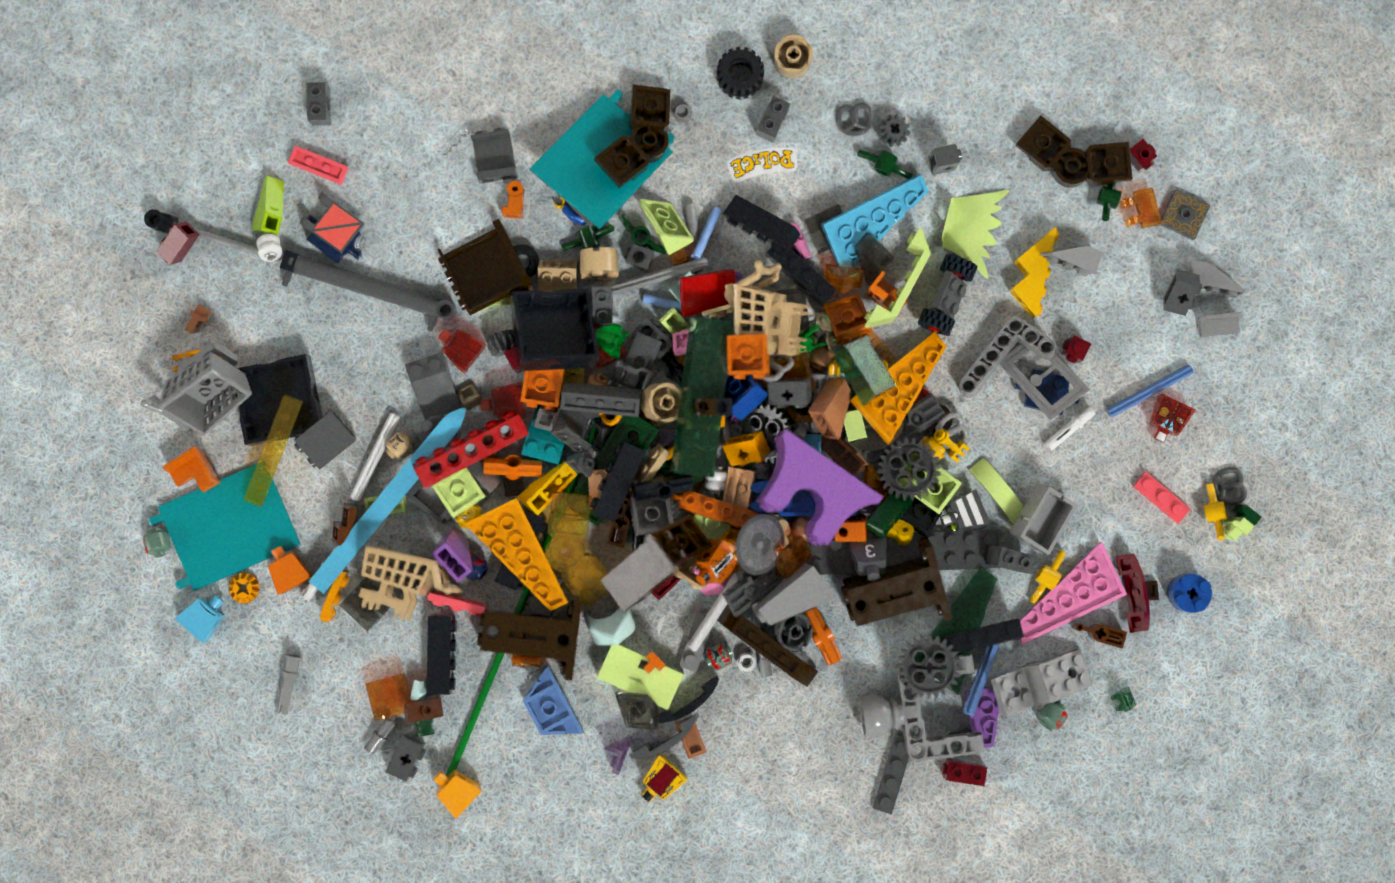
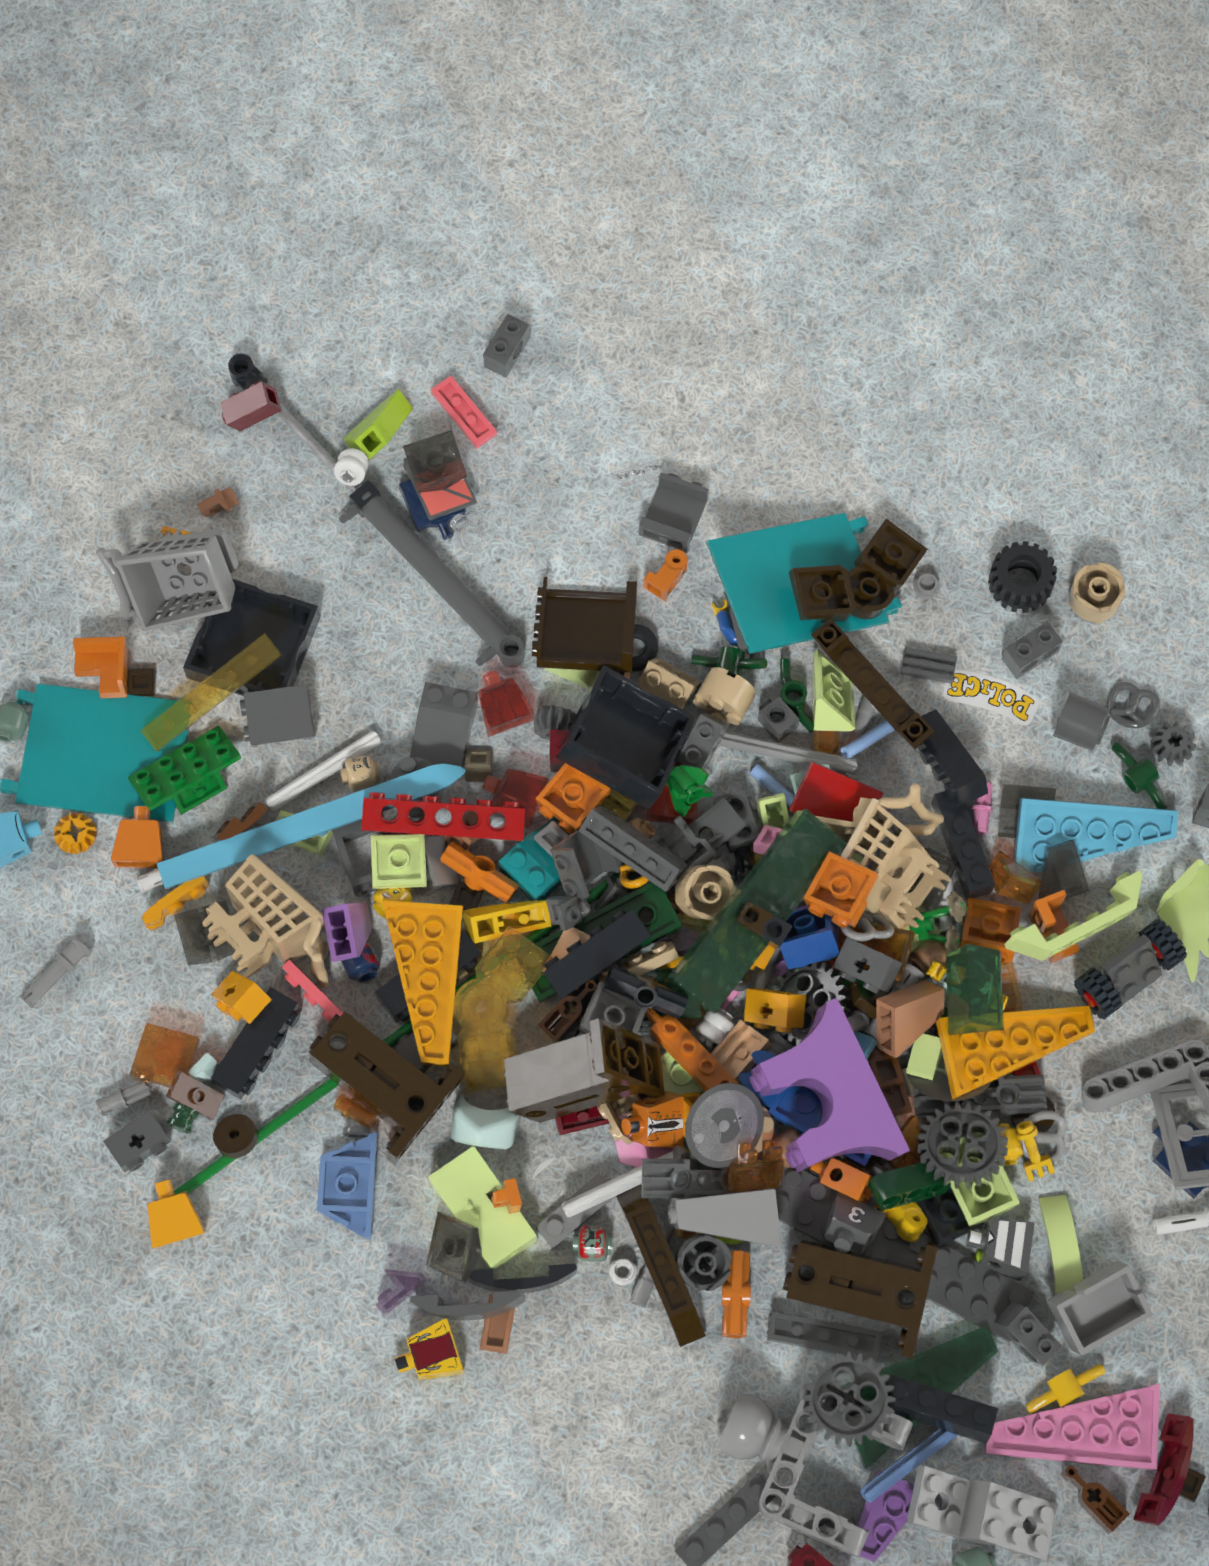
camera: 30 degrees right, 15 degrees down
(223, 466) = (141, 682): none -> dark brown tile
(290, 509) = (188, 773): none -> green bracket
(321, 213) = (435, 462): none -> clear smoke slope
(413, 635) = (240, 997): none -> light orange brick
(455, 718) = (239, 1146): none -> dark brown piece
(688, 202) = (872, 684): none -> dark brown slope
(714, 165) = (926, 655): none -> dark grey tile
(831, 150) = (1082, 722): none -> dark grey piece
(888, 629) = (824, 1335): none -> dark grey plate

